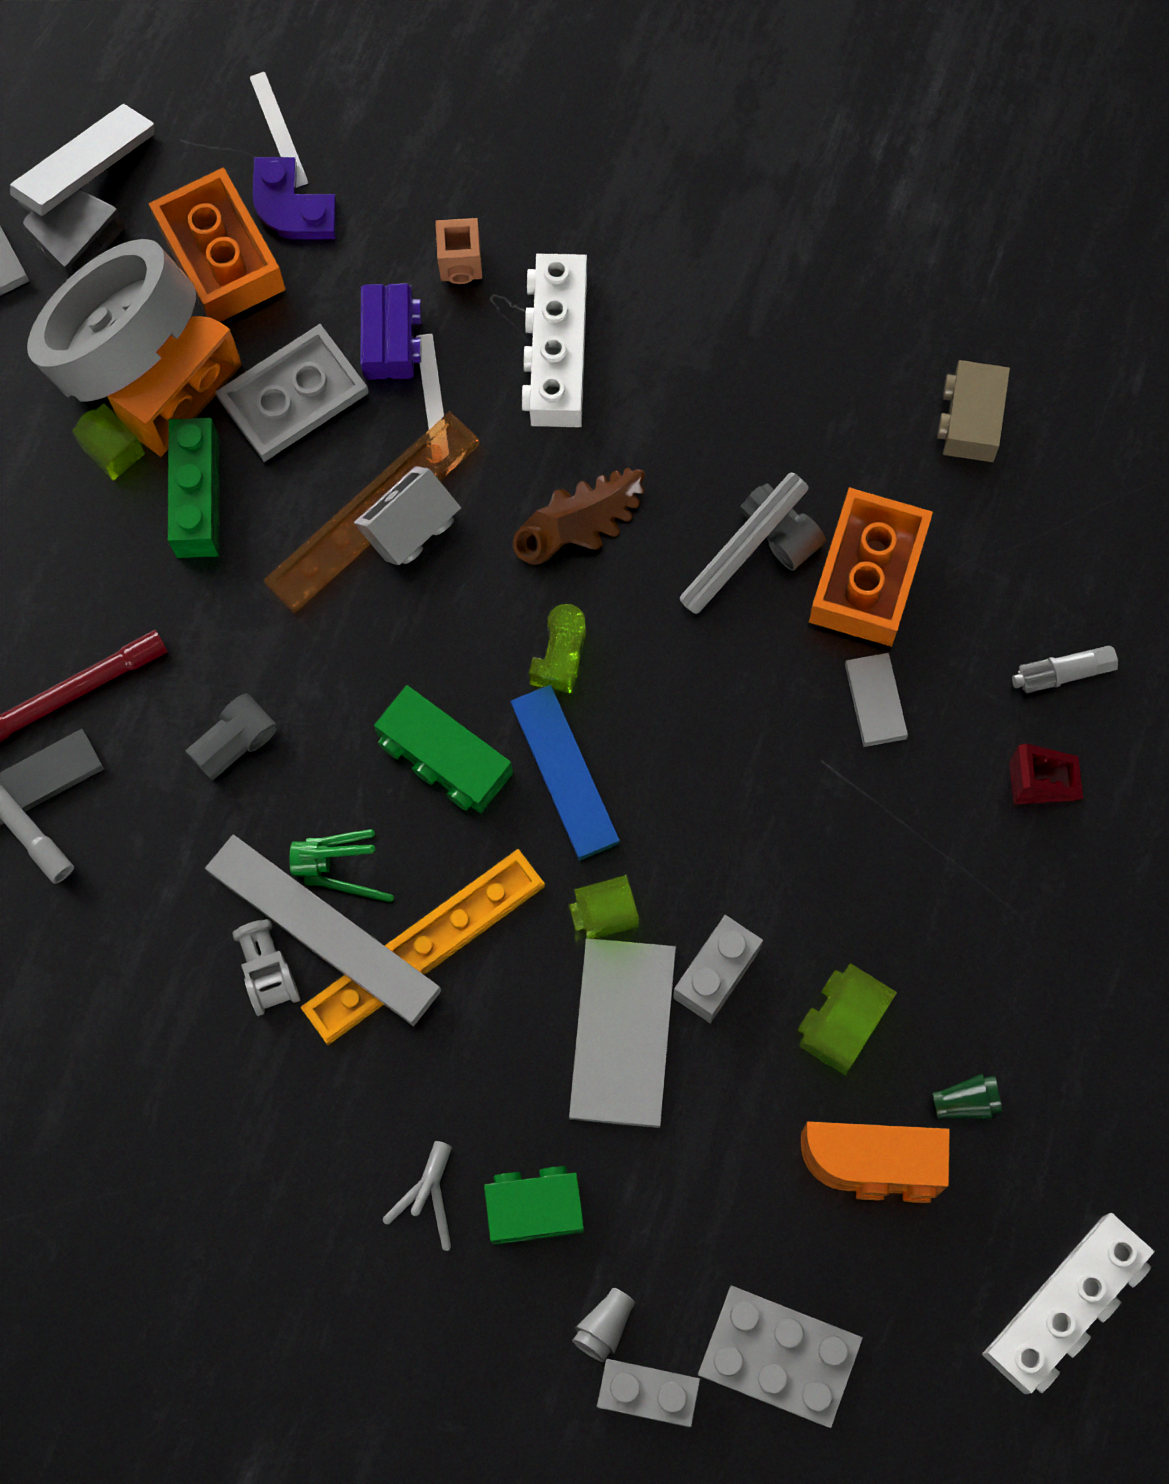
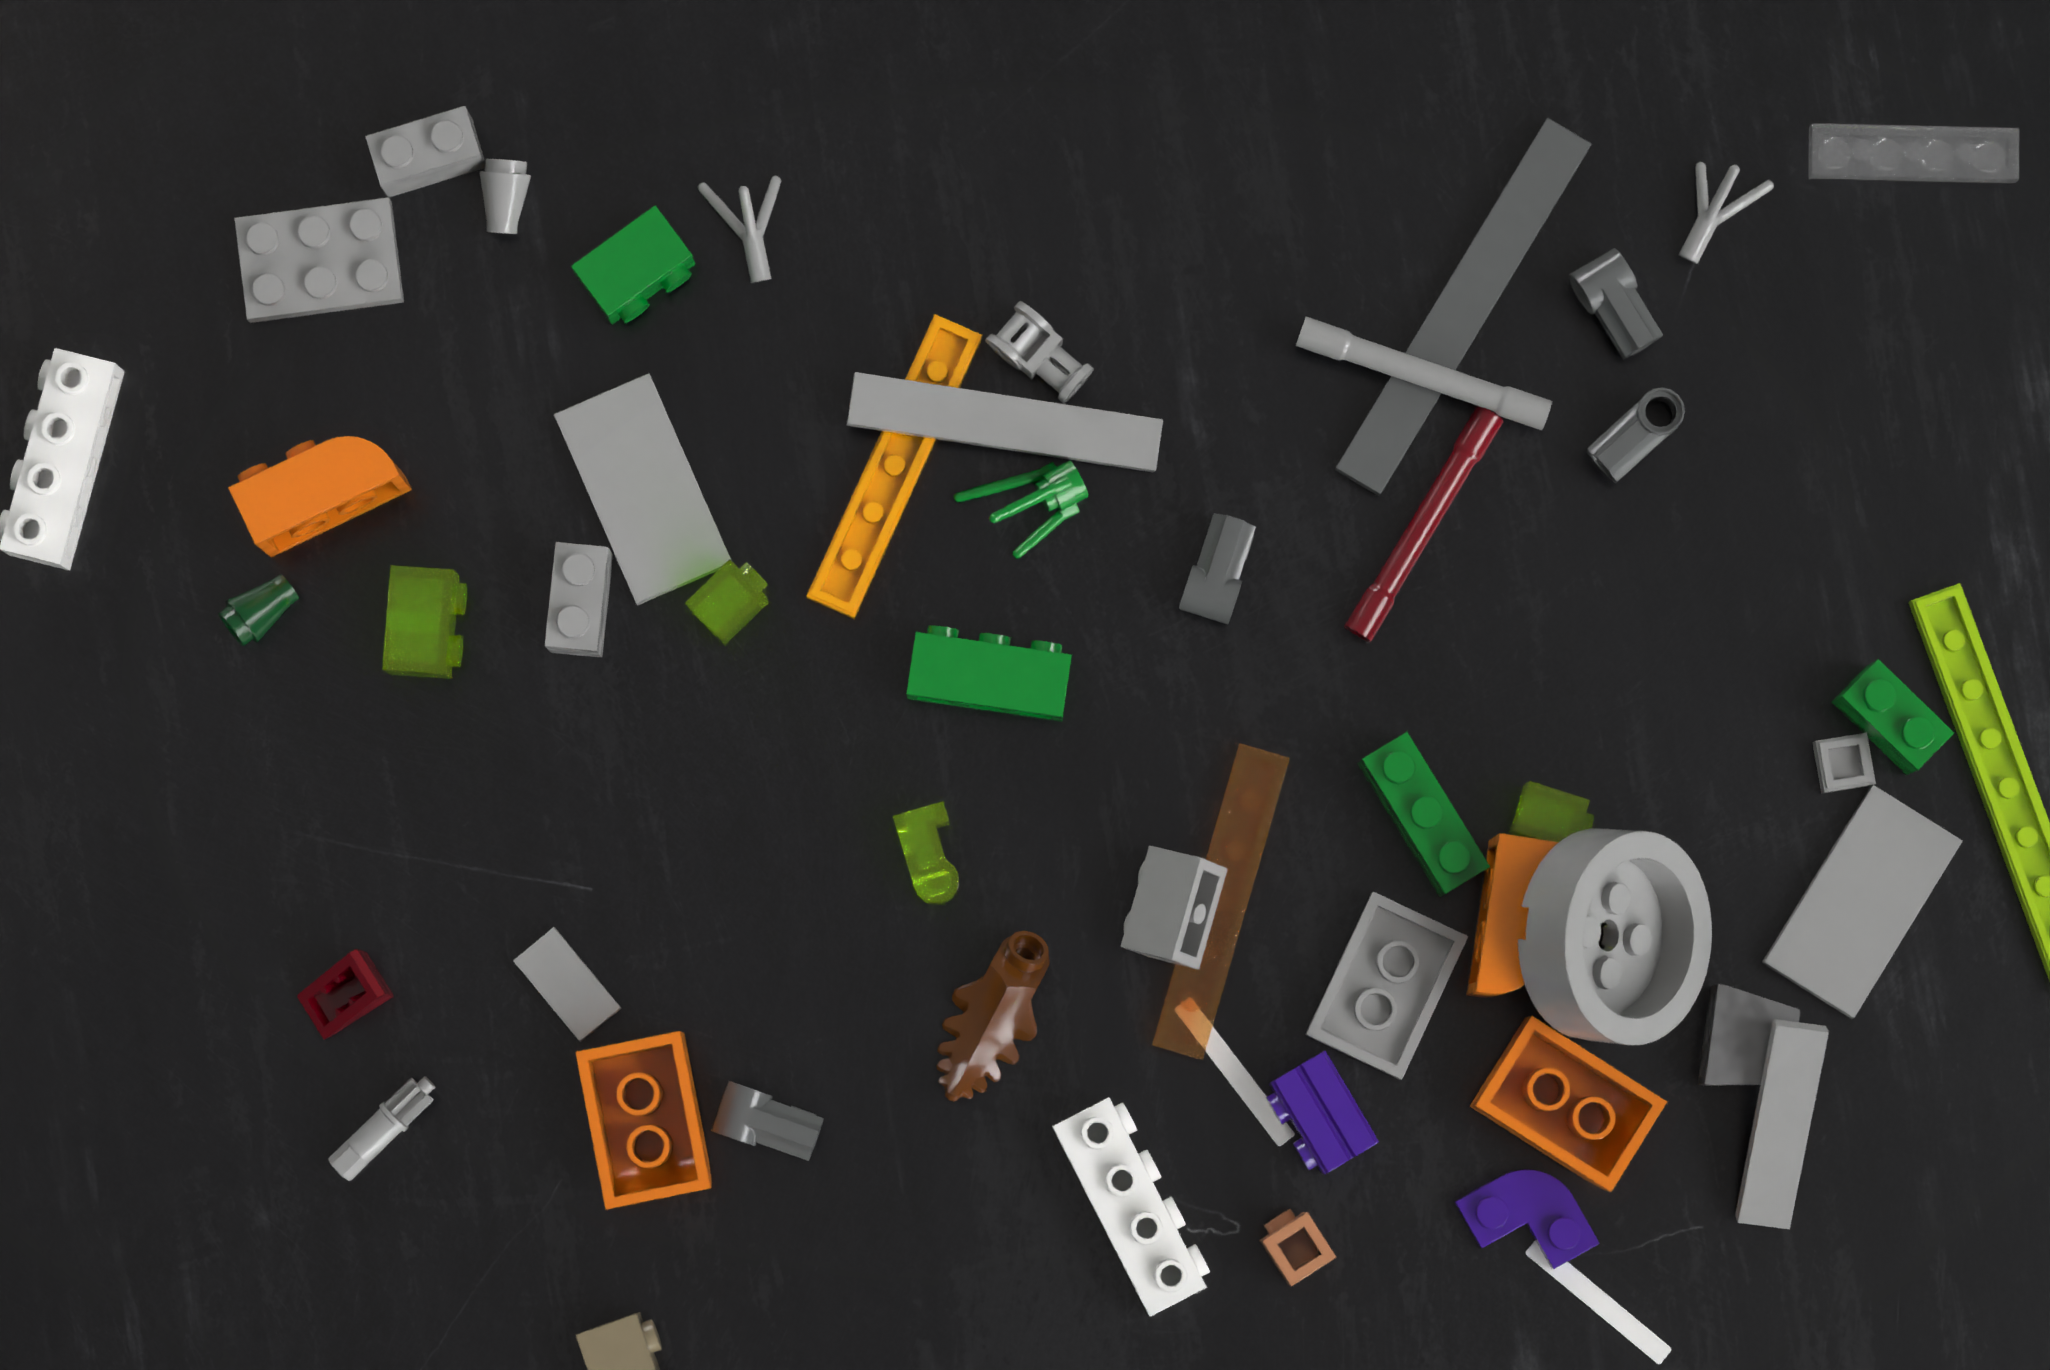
camera: 145 degrees right, 10 degrees up
(565, 772) = (852, 726): blue tile -> none
(744, 542) = (794, 1073): light grey axle -> none

